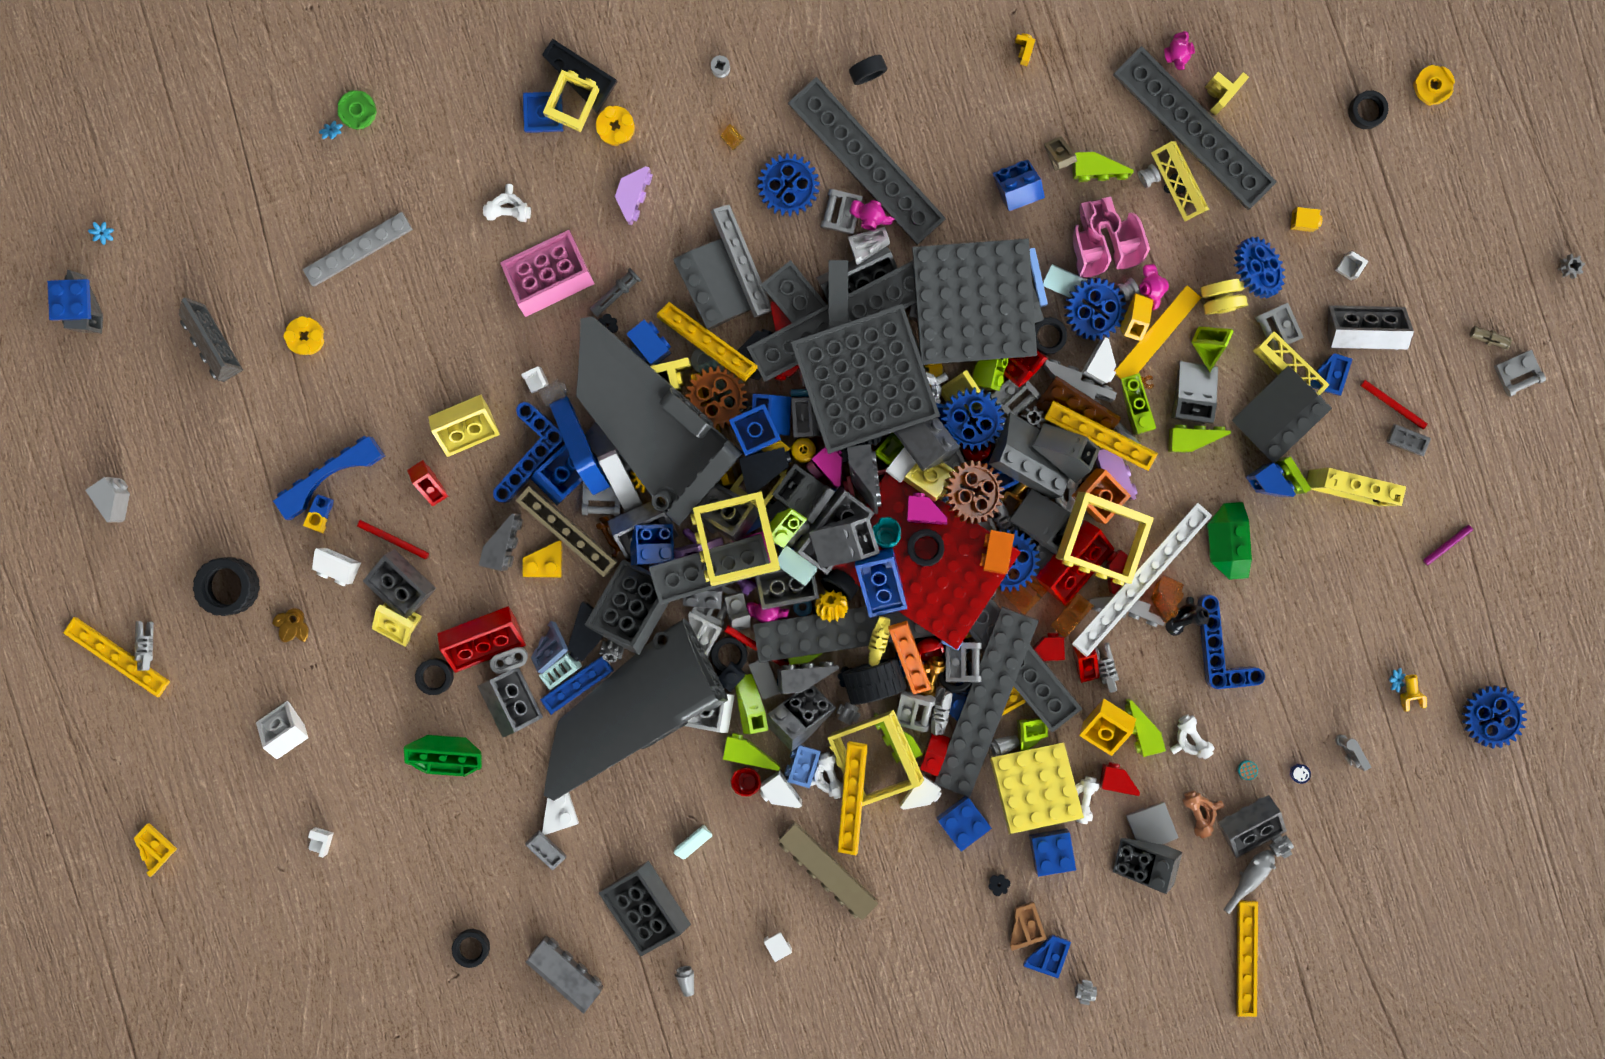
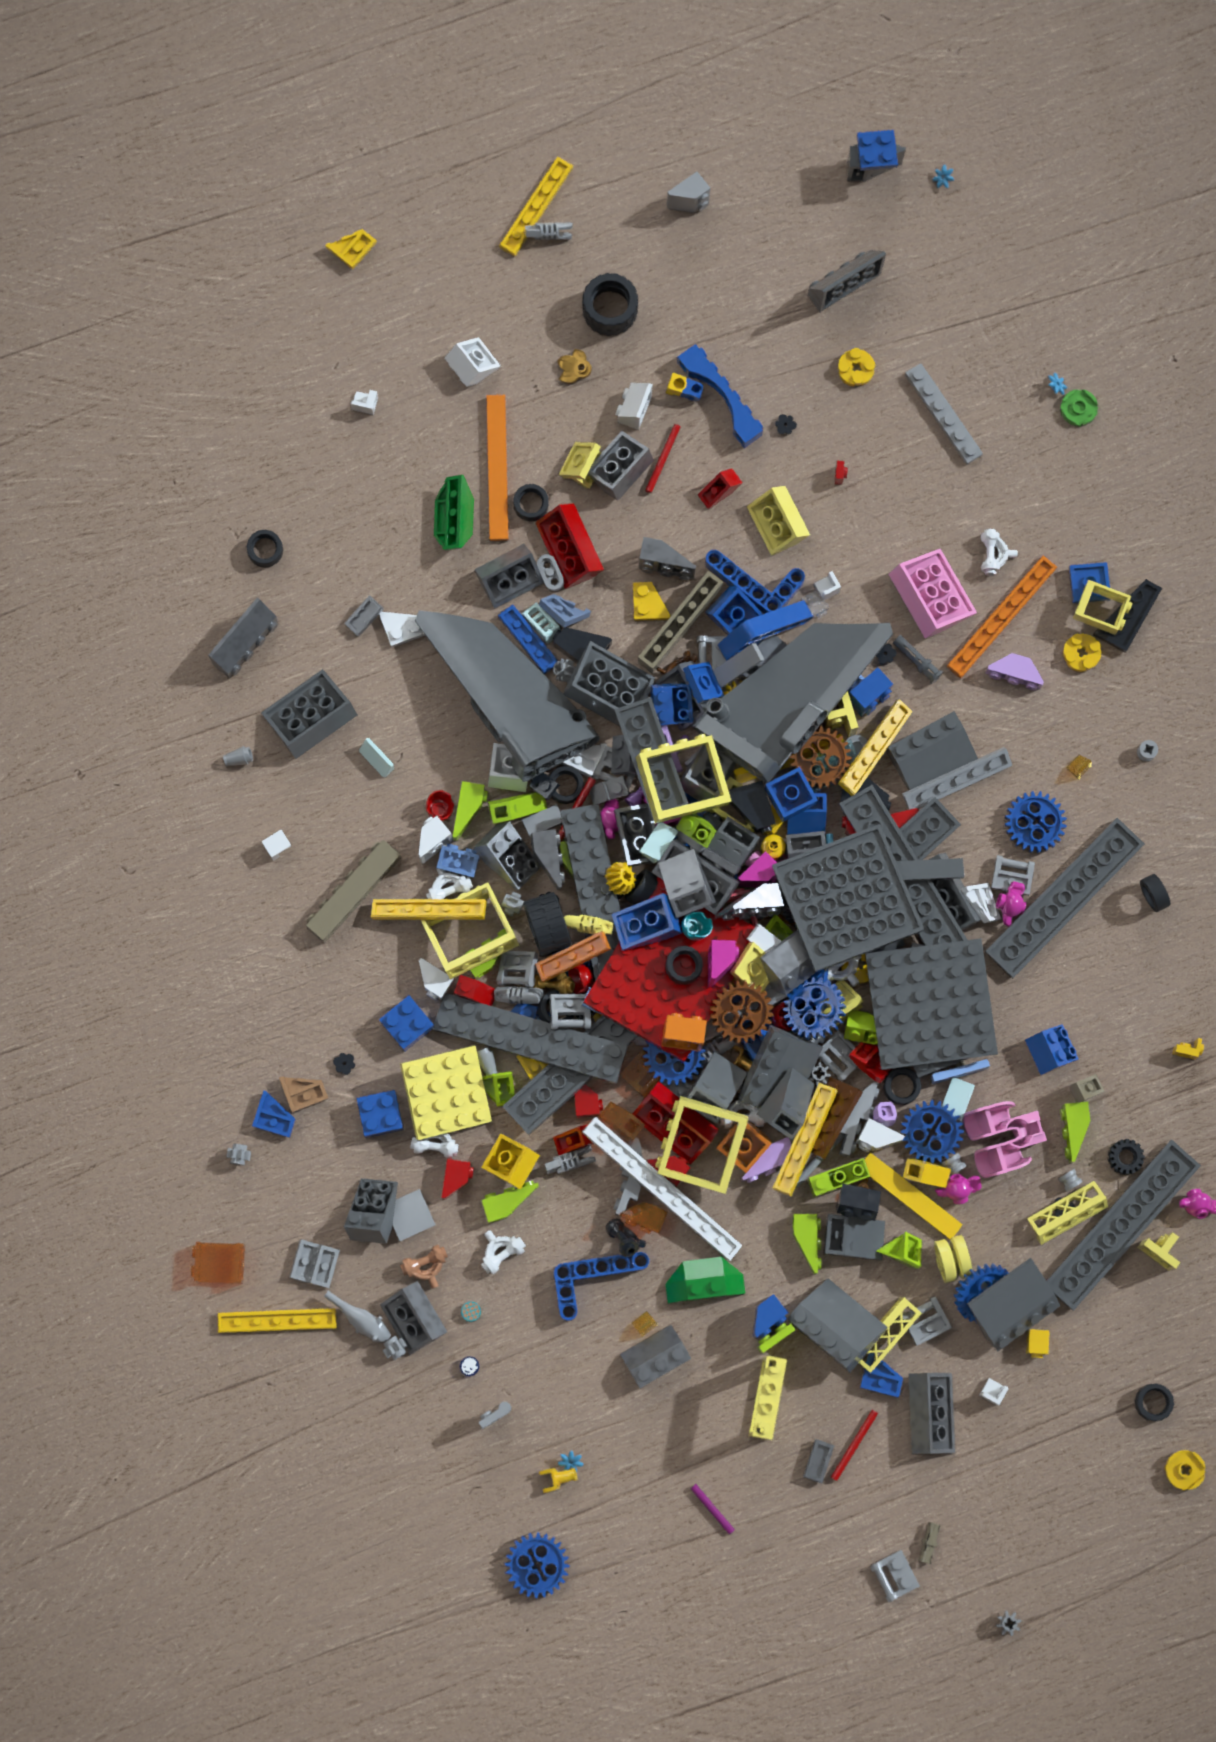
camera: 90 degrees right, 10 degrees down
(357, 413) = (788, 420): none -> black plant
(395, 708) = (497, 468): none -> orange tile
(416, 358) = (840, 472): none -> red plate
(574, 204) = (1001, 617): none -> orange tile
(633, 512) = (703, 682): none -> blue plate
(807, 611) = (614, 849): dark azure plate -> none
(1078, 355) = (885, 1114): none -> lavender rock
(1132, 108) = (1137, 1152): none -> black tyre
(1167, 386) = (858, 1202): none -> black slope
(1189, 1014) = (218, 1262): none -> clear orange panel
(1194, 920) = (314, 1263): none -> light grey slope
(1267, 602) = (644, 1323): none -> clear yellow slope
(1274, 239) = (1013, 1305): none -> dark grey slope
(1301, 592) = (655, 1356): none -> flat silver slope

